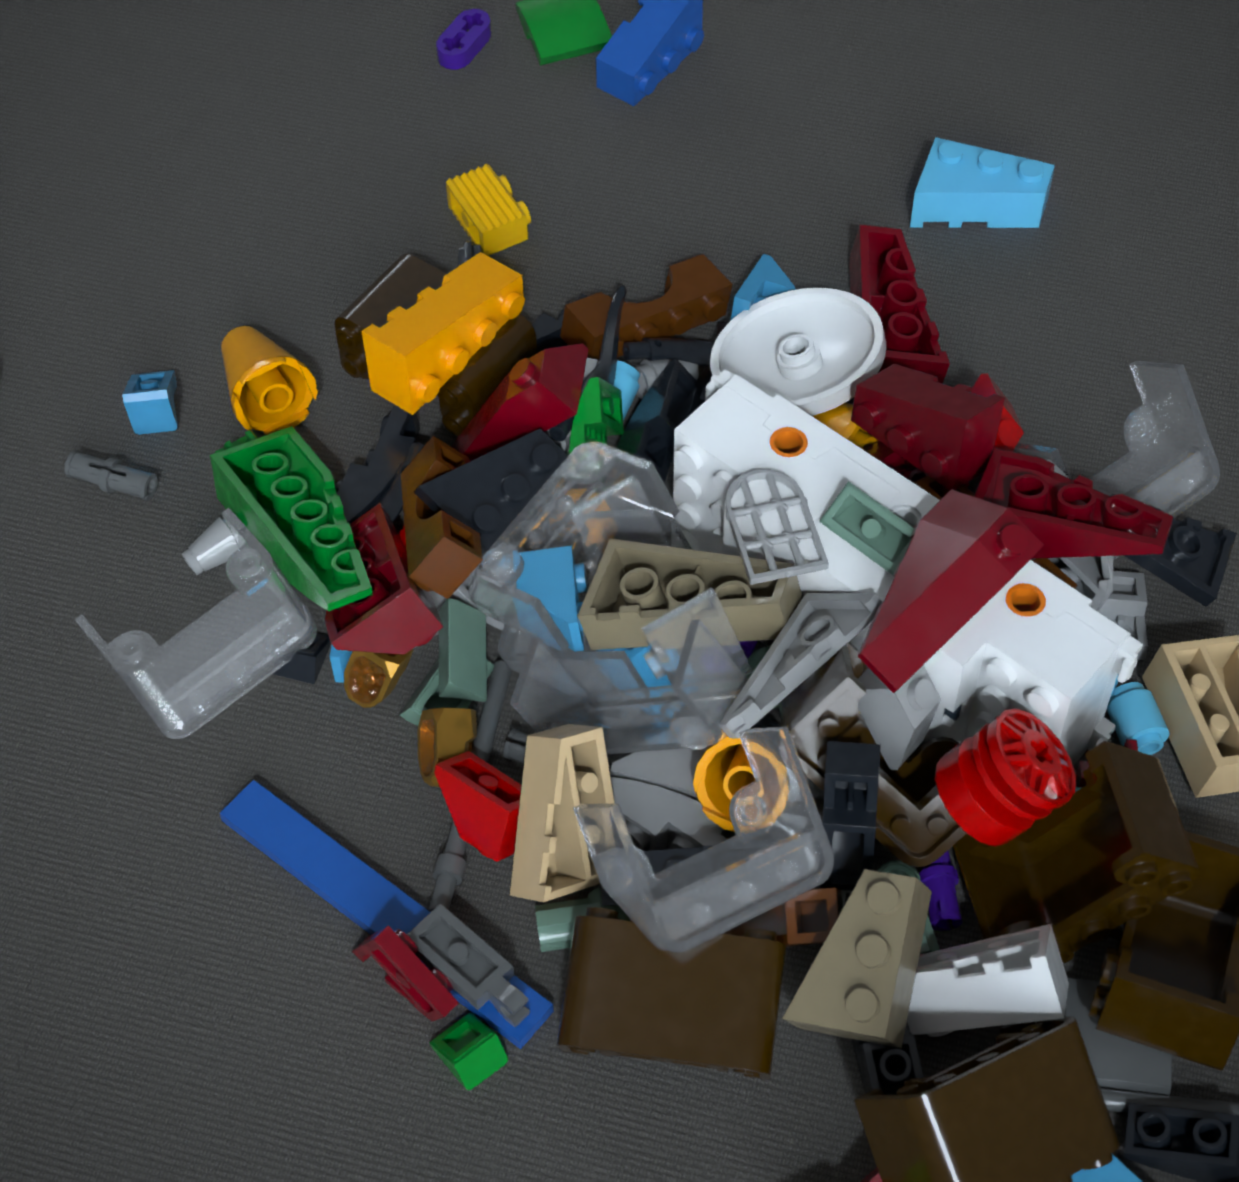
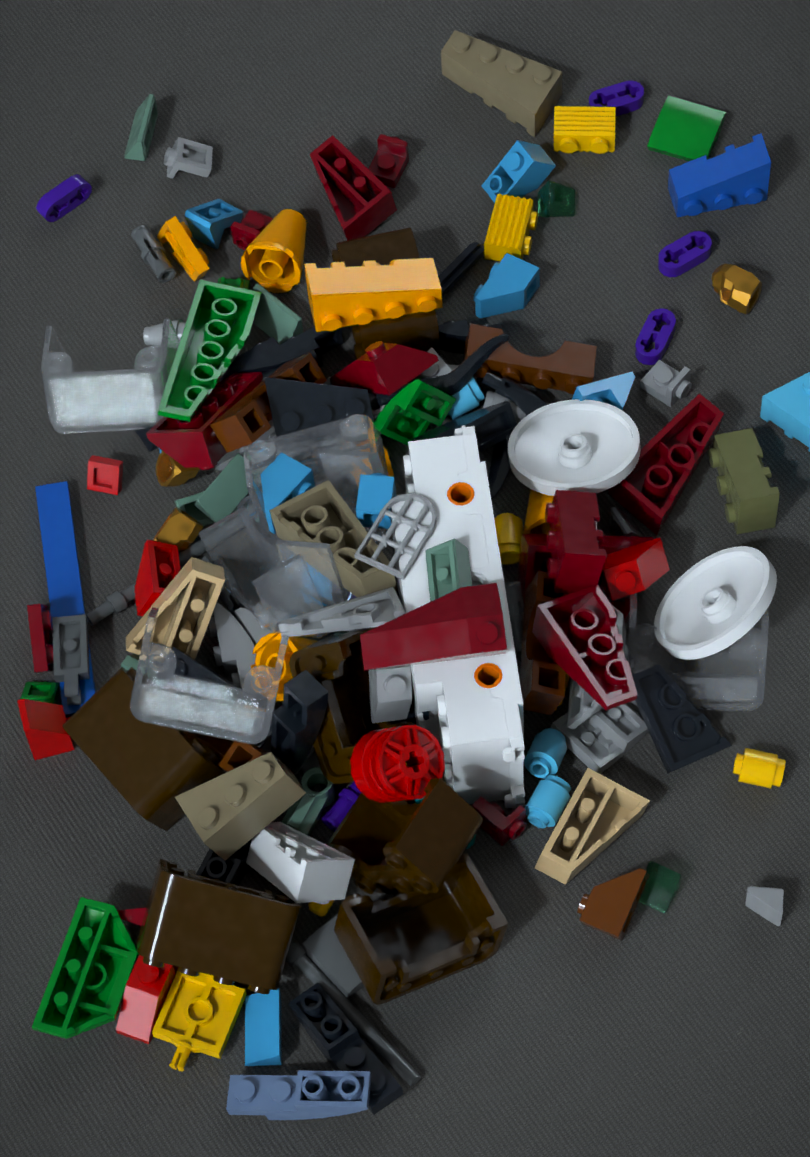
camera: 45 degrees right, 5 degrees up
(52, 354) = (188, 157): none -> light grey bracket
(147, 444) = (186, 254): none -> light orange wing
(205, 383) = (249, 228): none -> dark red bracket
(280, 271) = (352, 189): none -> dark red wedge
(287, 225) = (390, 160): none -> dark red bracket
(295, 740) = (104, 475): none -> red tile
(330, 81) = (503, 79): none -> dark tan wedge
(333, 443) = (276, 318): none -> sand green slope
(439, 155) = (519, 171): none -> dark azure slope
(464, 78) = (584, 129): none -> yellow brick
(503, 158) = (555, 200): none -> clear green slope
(523, 1073) = (44, 728): none -> red slope
(546, 261) = (508, 287): none -> dark azure slope
(675, 128) = (684, 253): none -> dark purple beam
(691, 518) = (373, 495): none -> dark azure slope
(743, 216) = (649, 334): none -> dark purple beam
(767, 123) = (736, 287): none -> pearl gold rock
(798, 251) = (667, 383): none -> light grey bracket
(979, 283) = (744, 481): none -> olive wedge
(1099, 396) = (715, 602): none -> white dish

